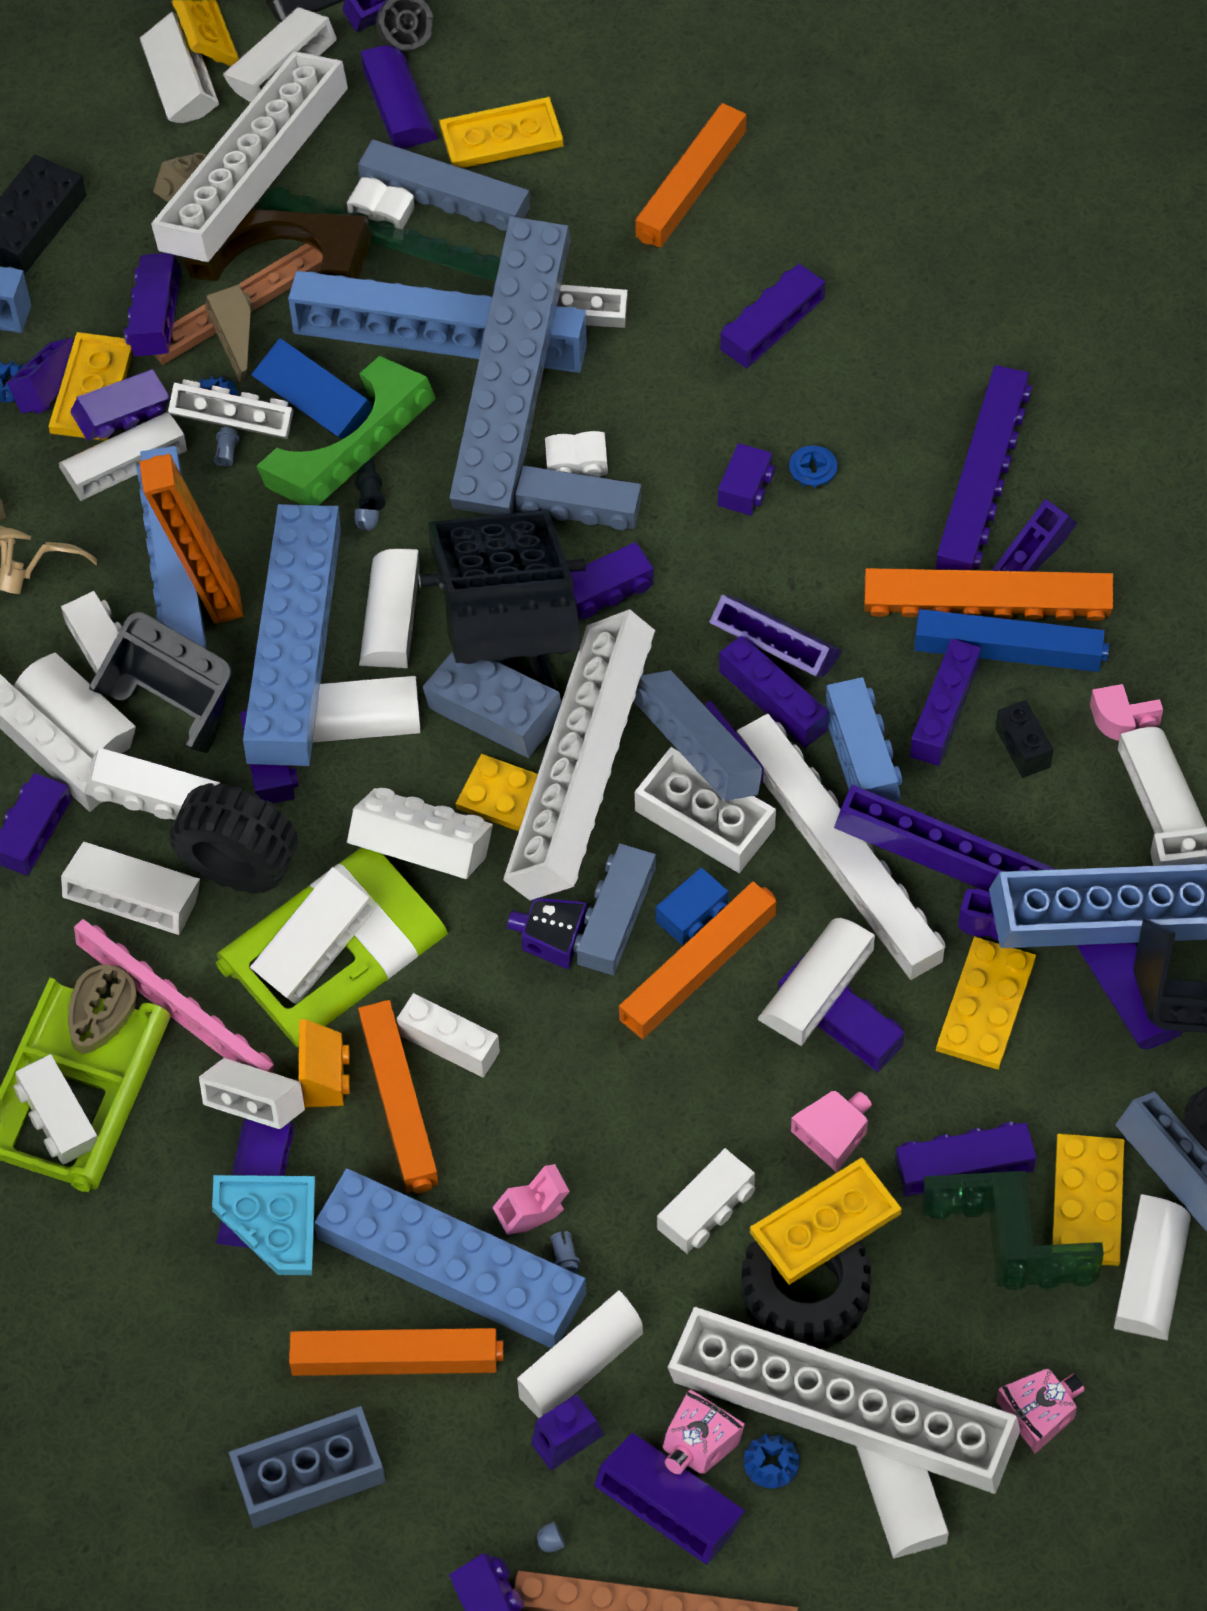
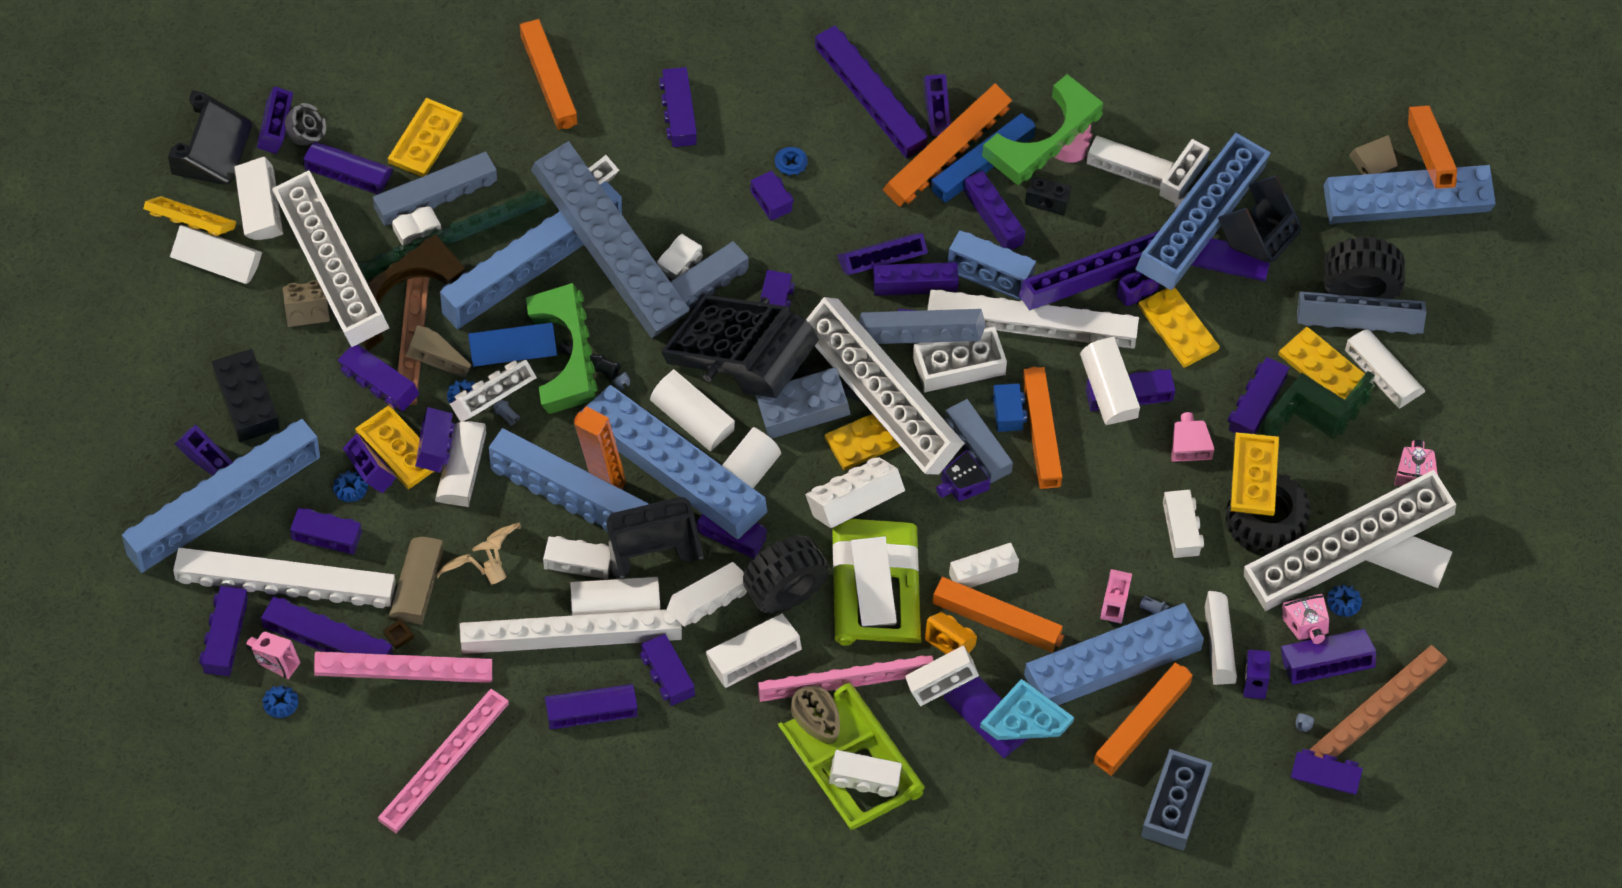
camera: 55 degrees left, 0 degrees up
(1033, 673) = (1021, 160): none -> bright green arch

